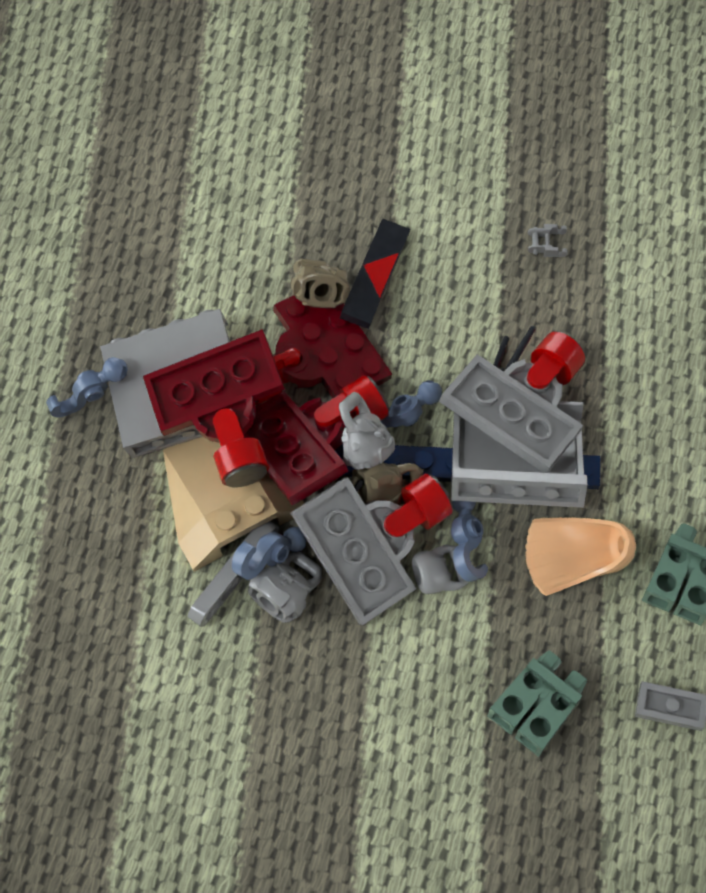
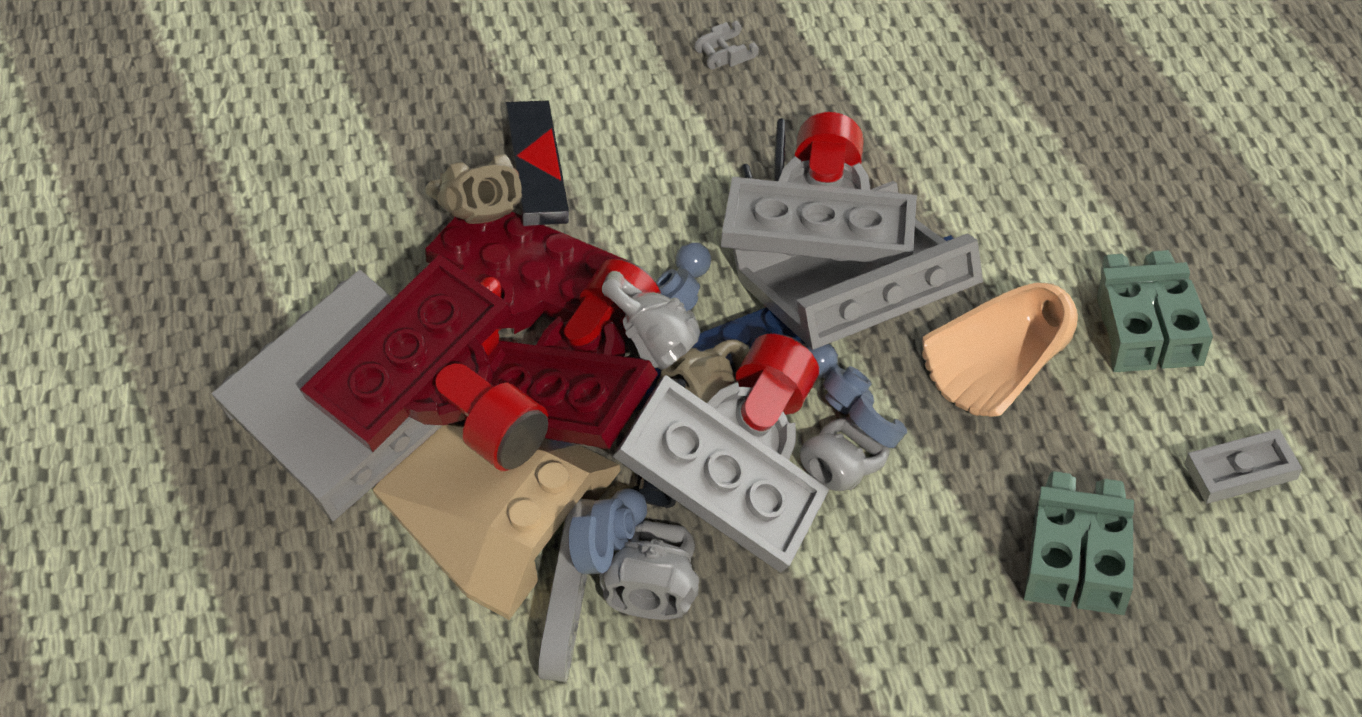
camera: 30 degrees left, 15 degrees down
(88, 387) = (222, 448): sand blue piece -> none

